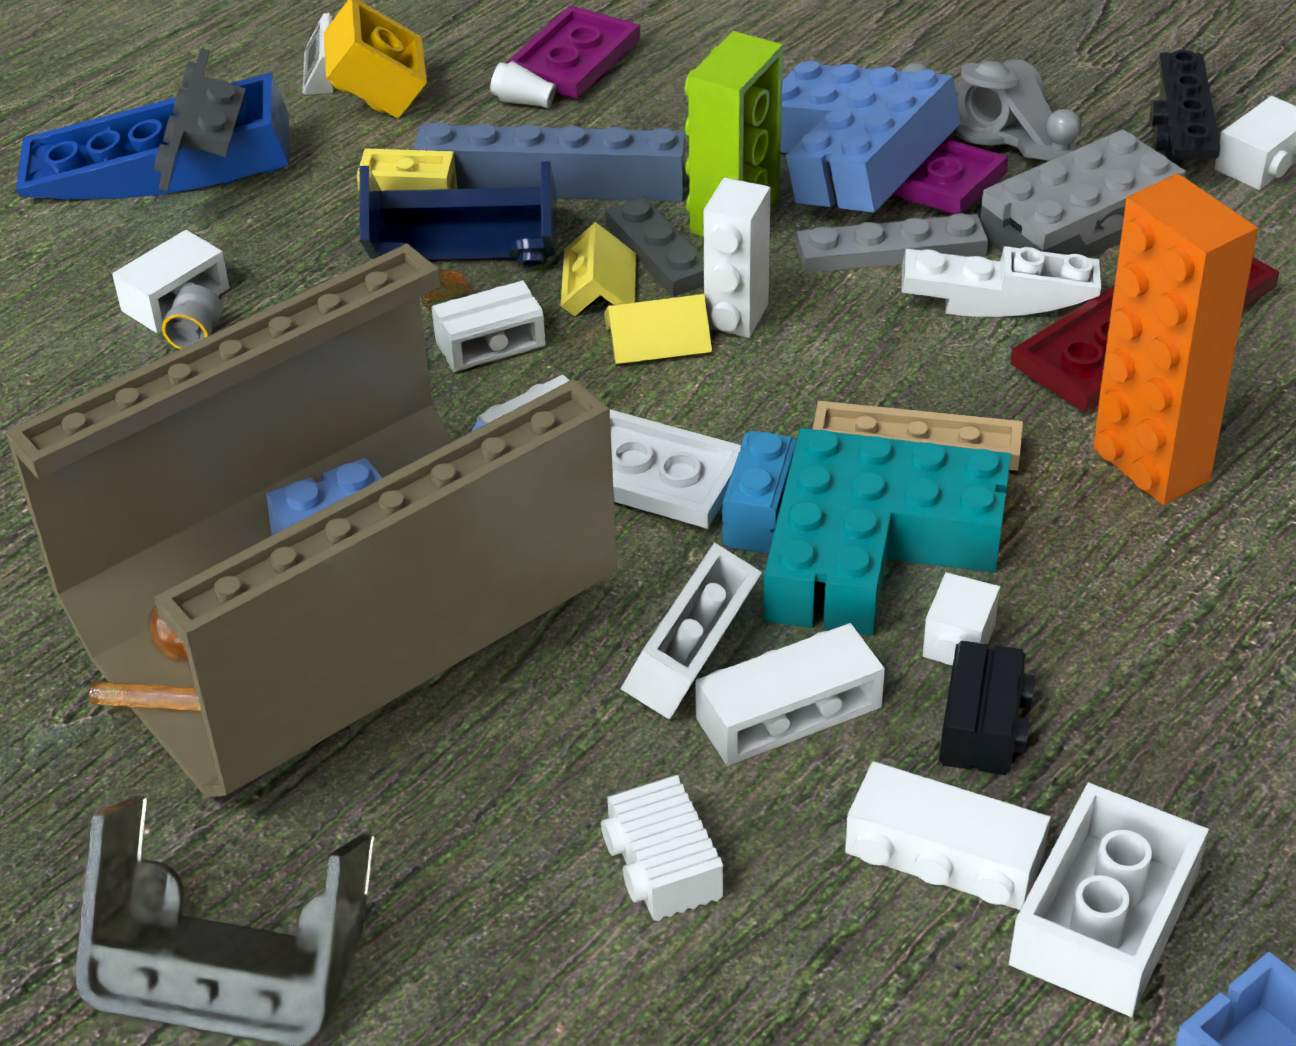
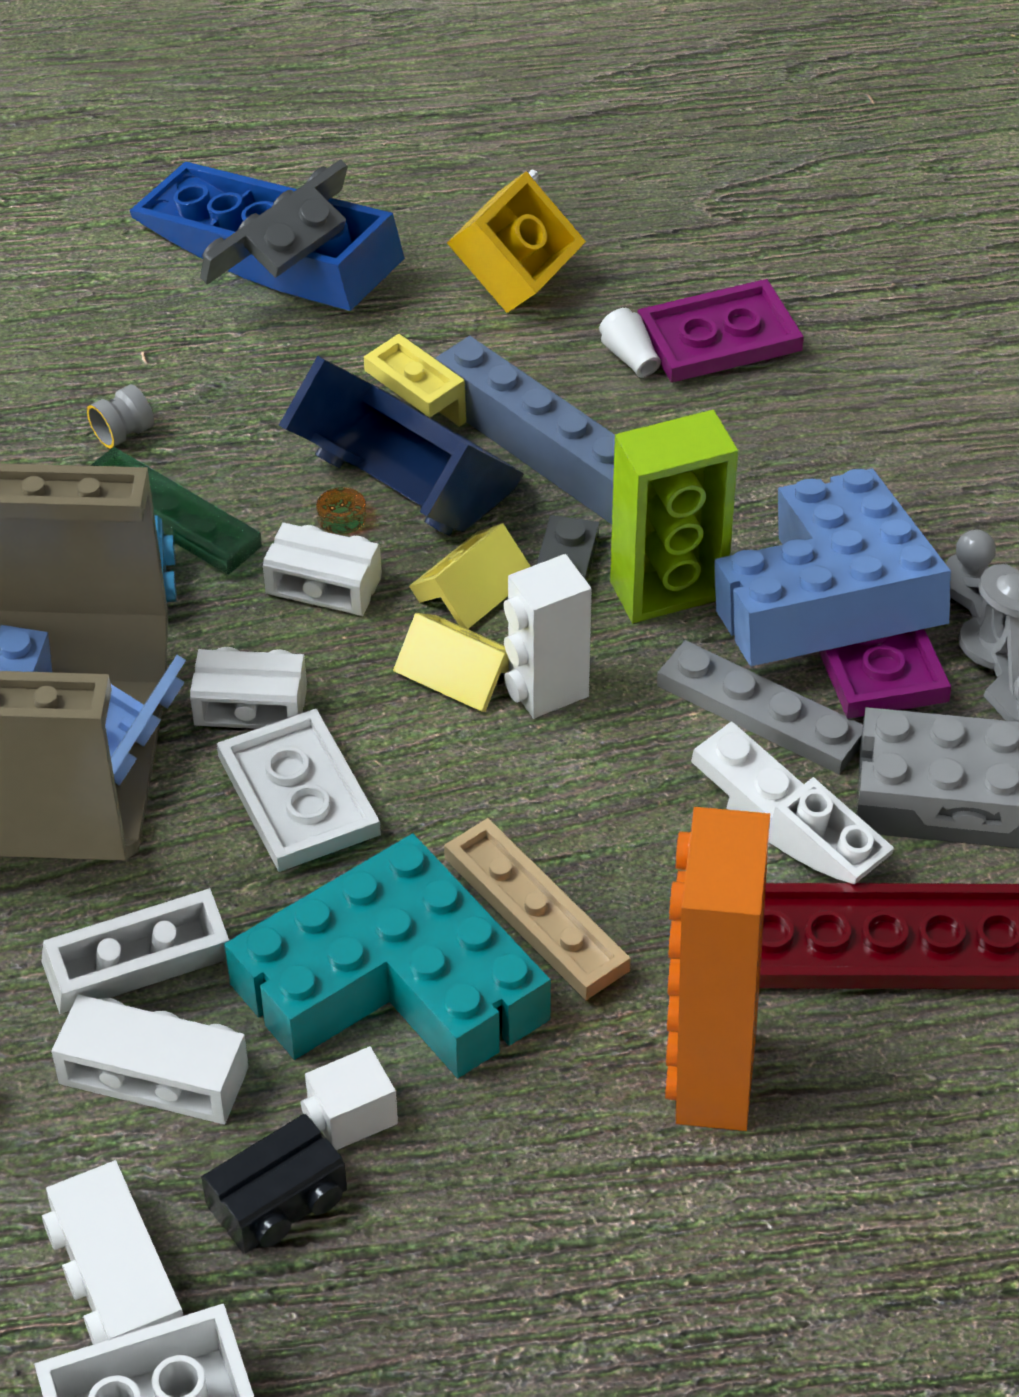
camera: 40 degrees right, 5 degrees up
(153, 280) = (151, 361): white brick -> none
(756, 491) = (331, 854): dark azure brick -> none

